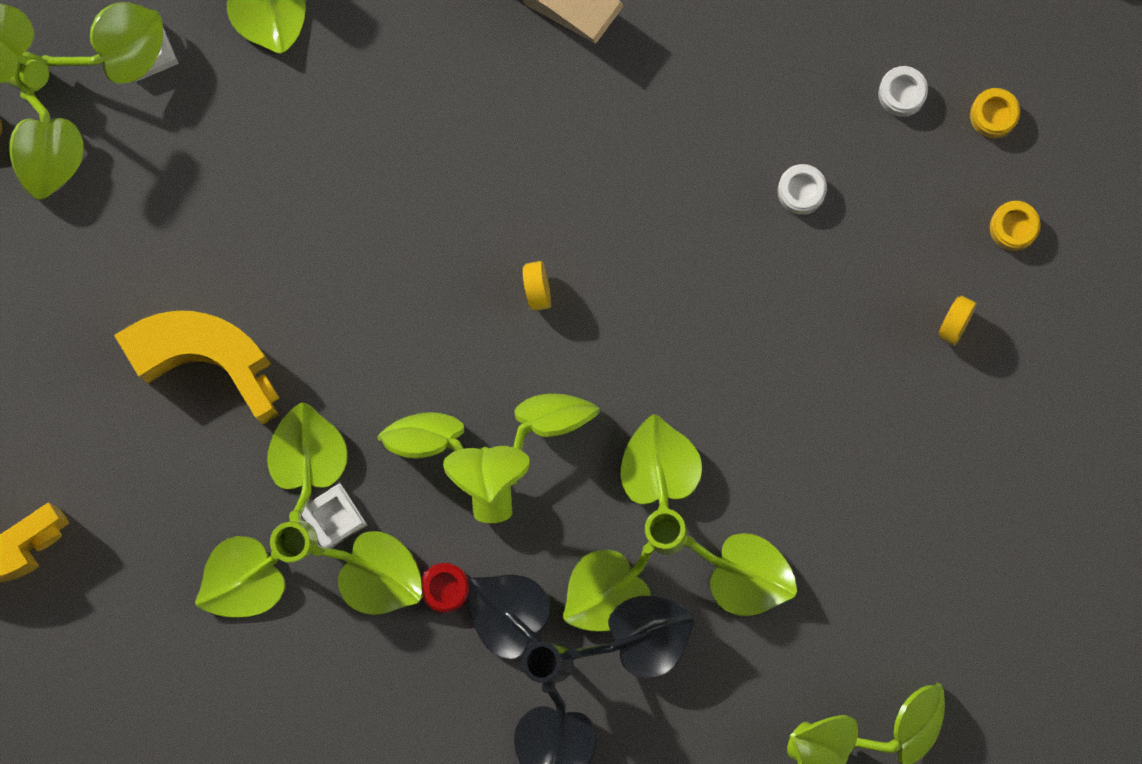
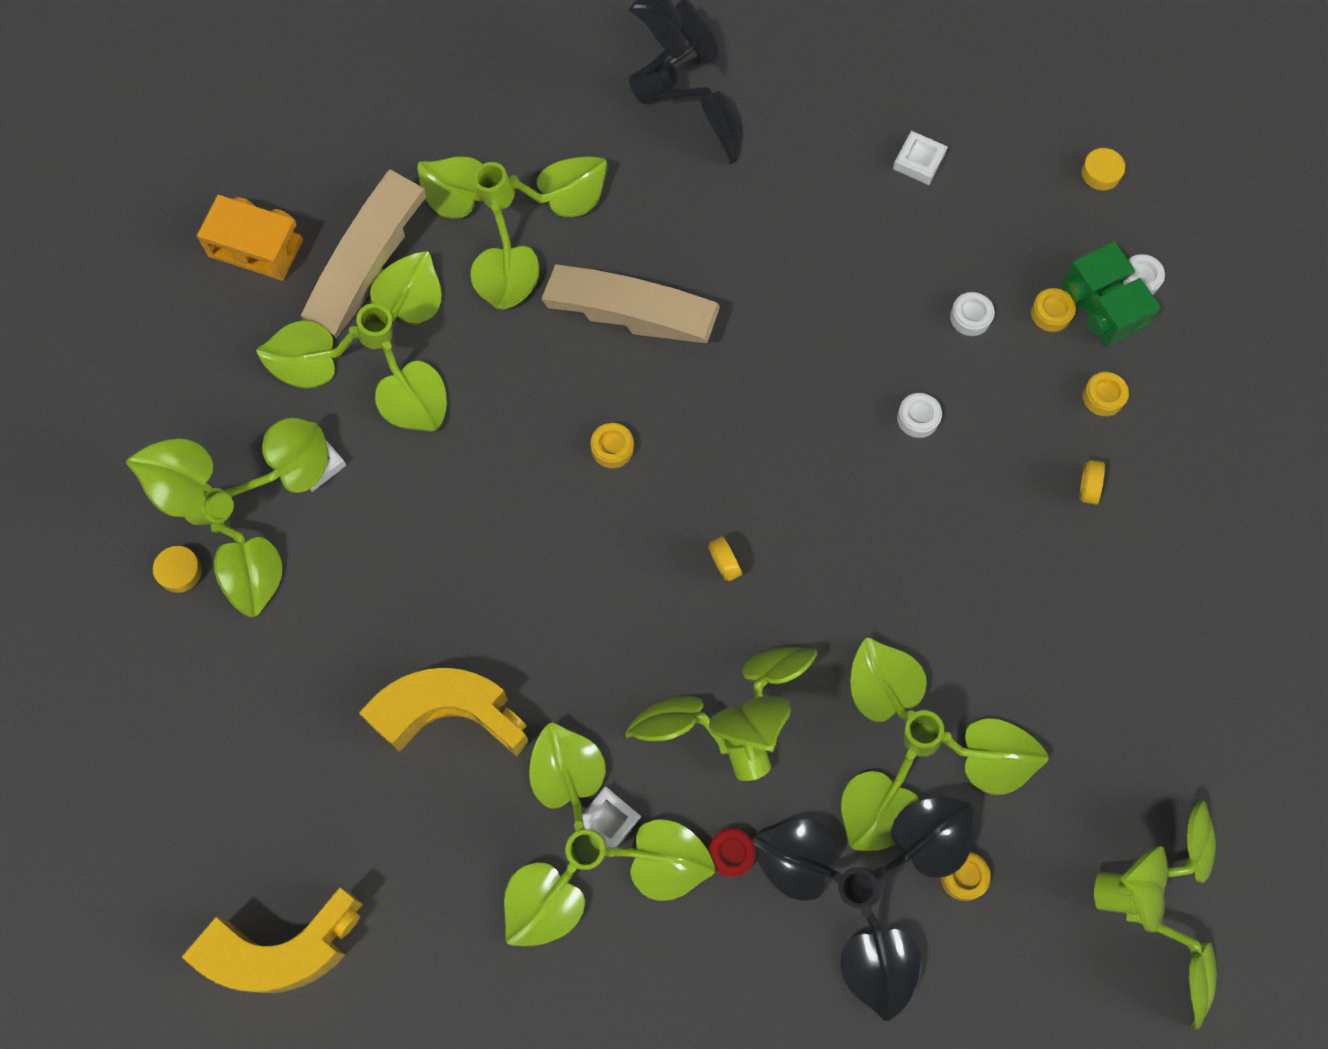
camera: 25 degrees left, 10 degrees down
(462, 125) = (612, 445): none -> yellow tile
(672, 688) = (969, 881): none -> yellow tile
(1055, 105) = (1112, 307): none -> green piece
(1110, 102) = (1147, 269): none -> white tile

